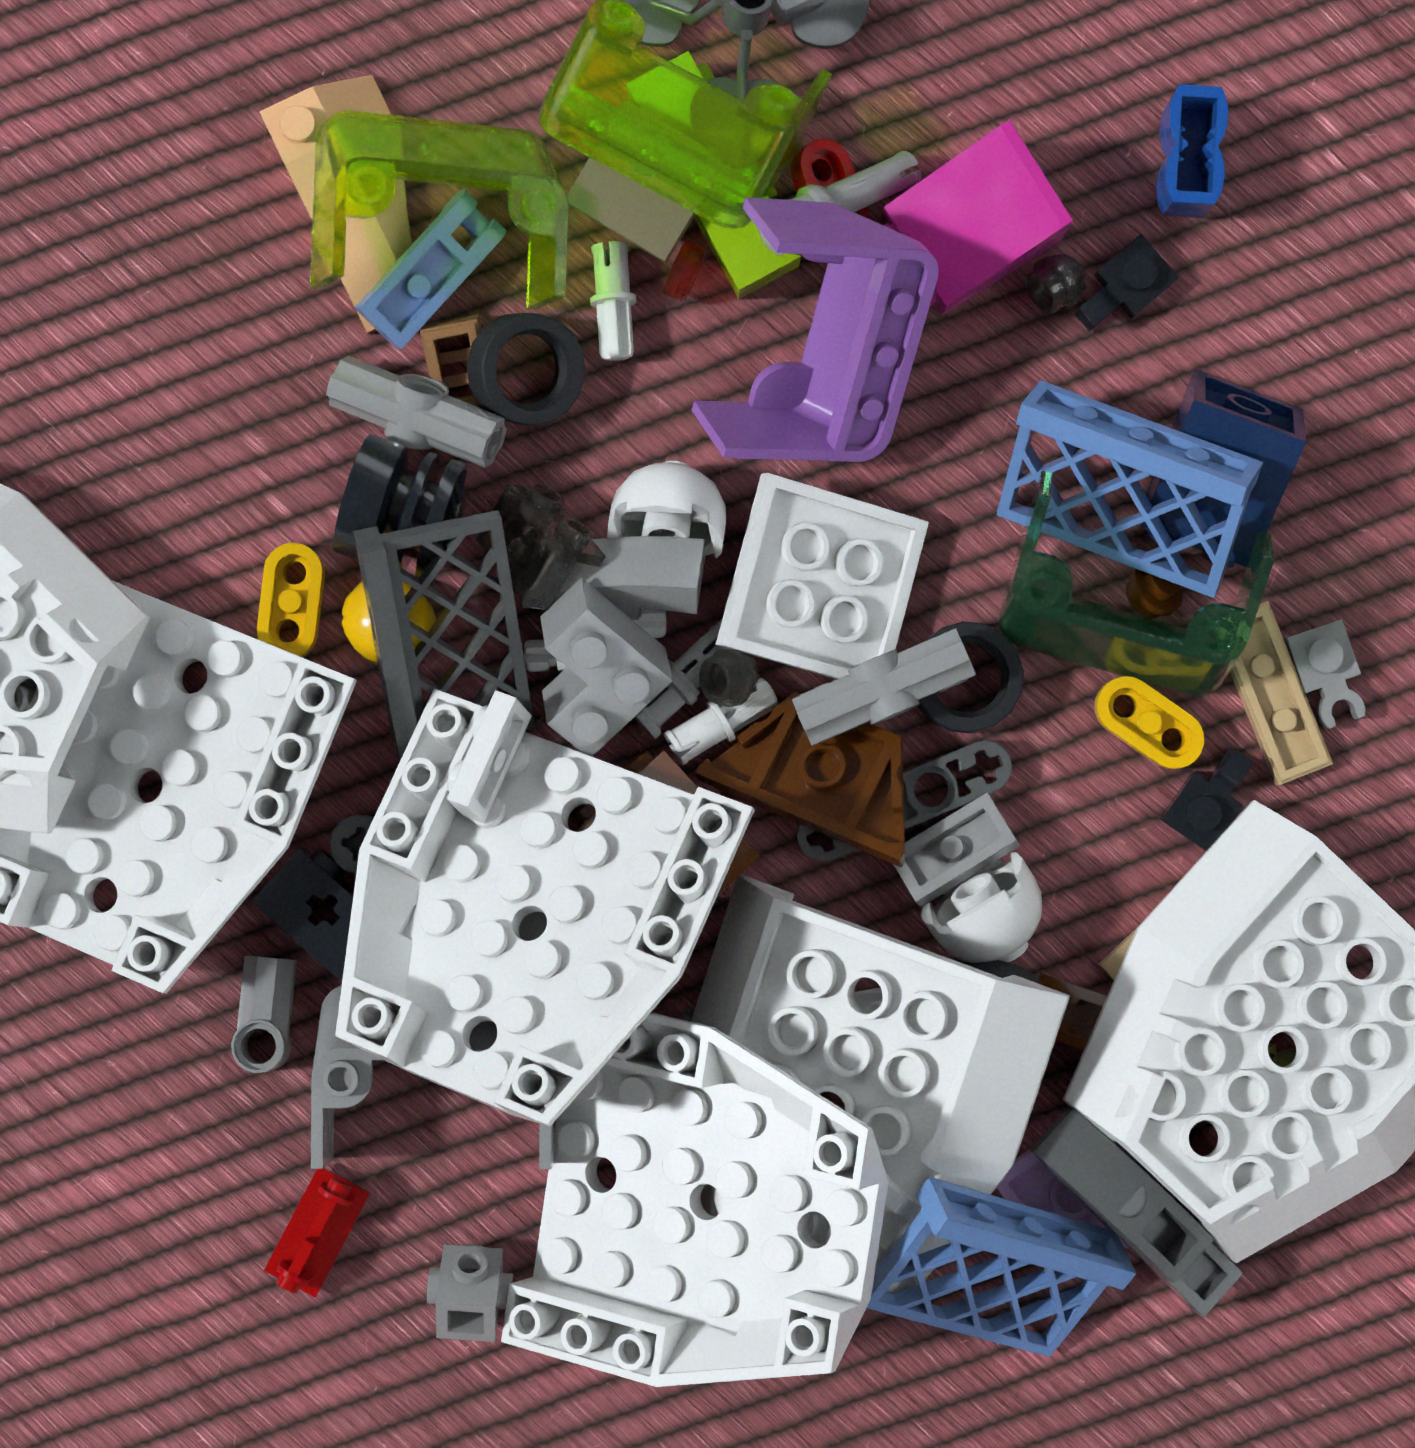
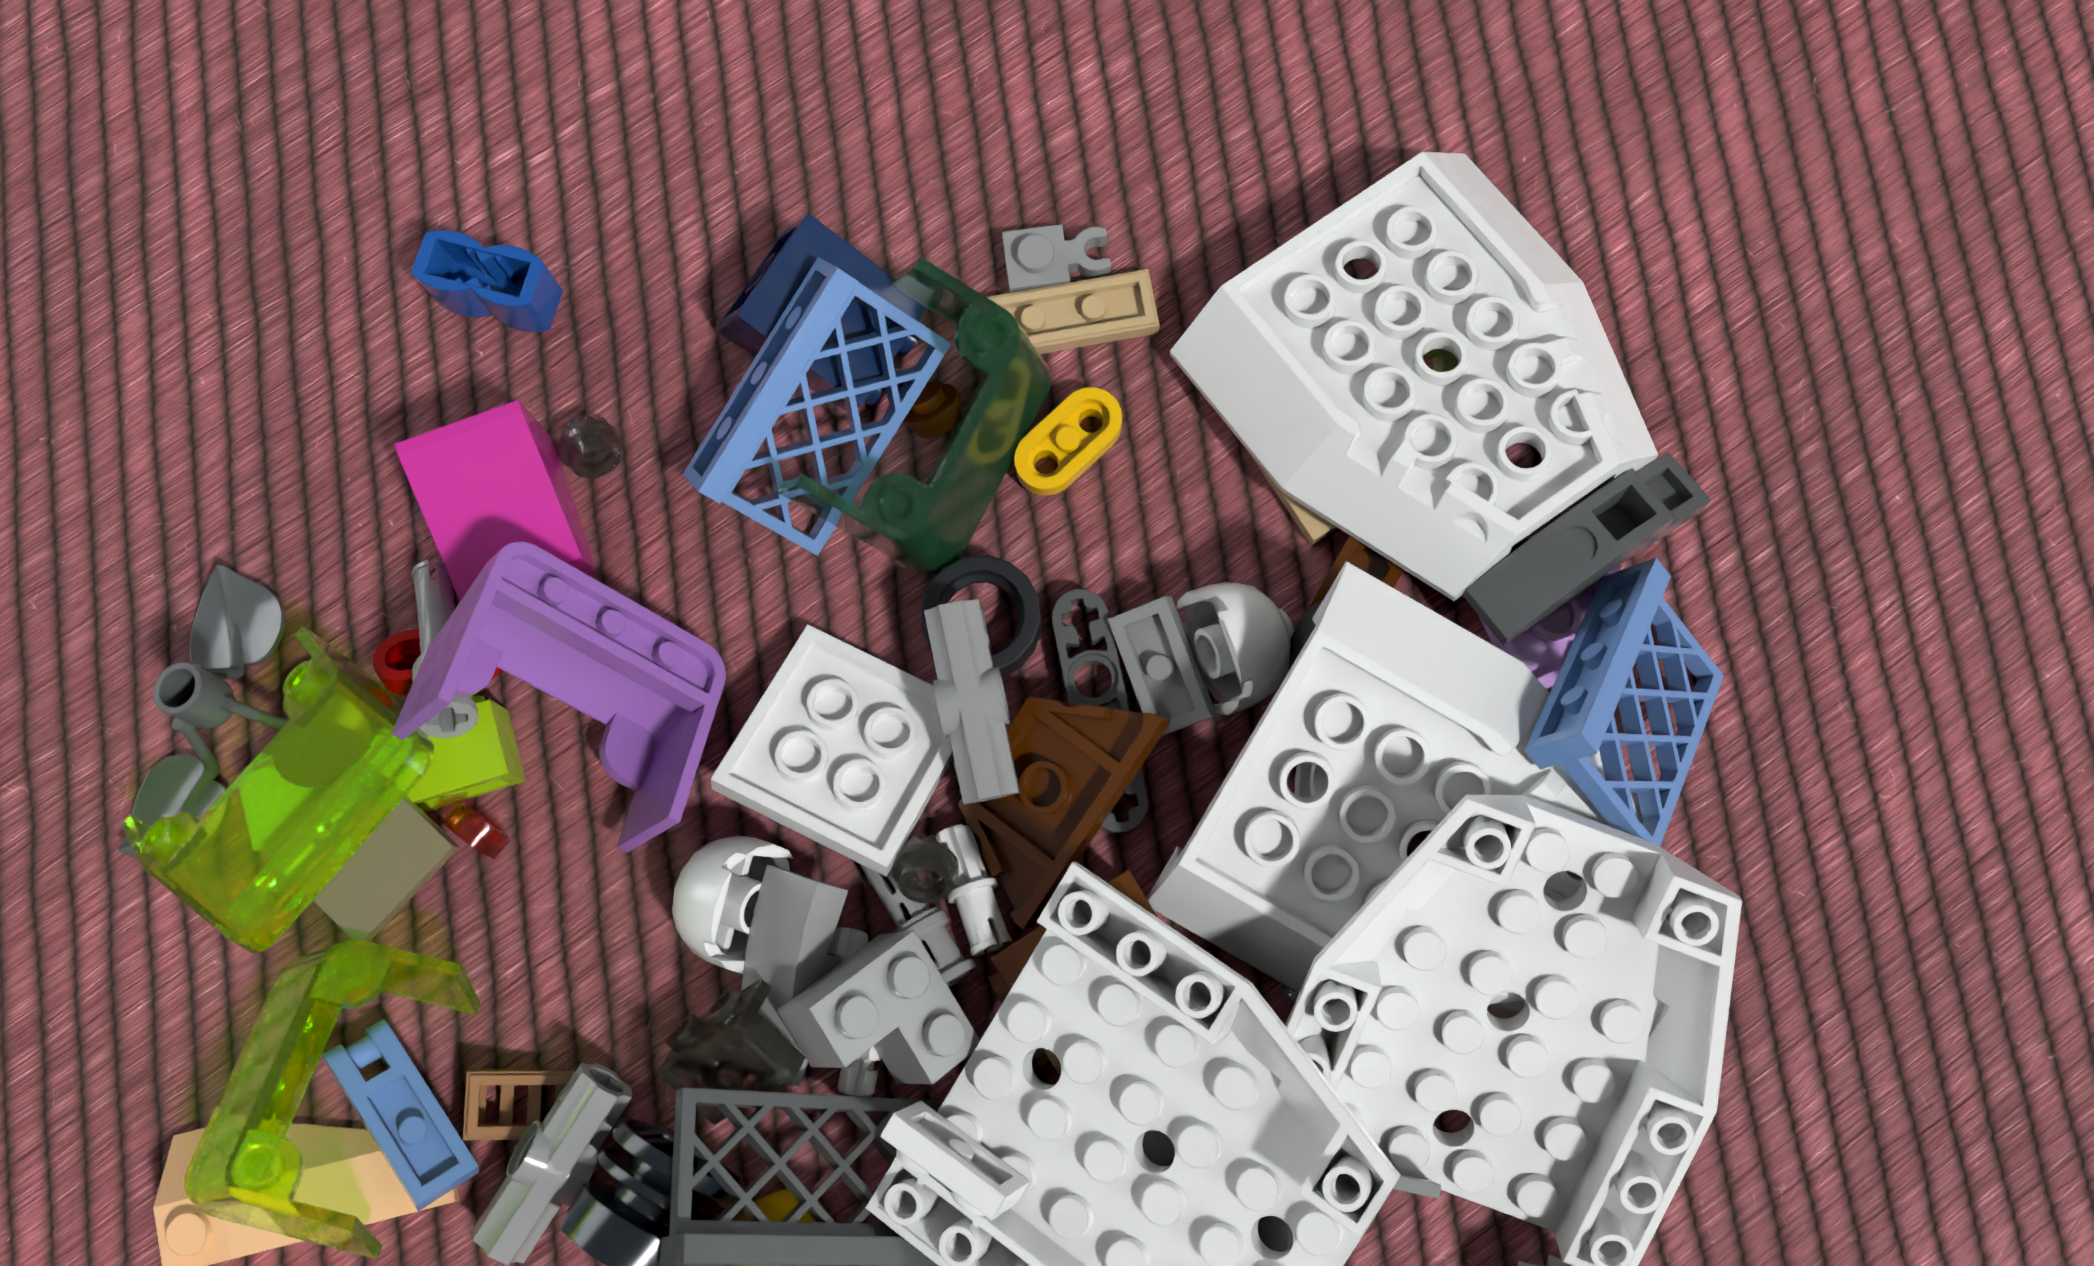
camera: 70 degrees left, 10 degrees down
(568, 367) = (522, 980): black tyre -> none
(613, 300) = (489, 915): axle -> none
(1129, 281) = (609, 374): black plate -> none
(1203, 806) = (1166, 404): black plate -> none

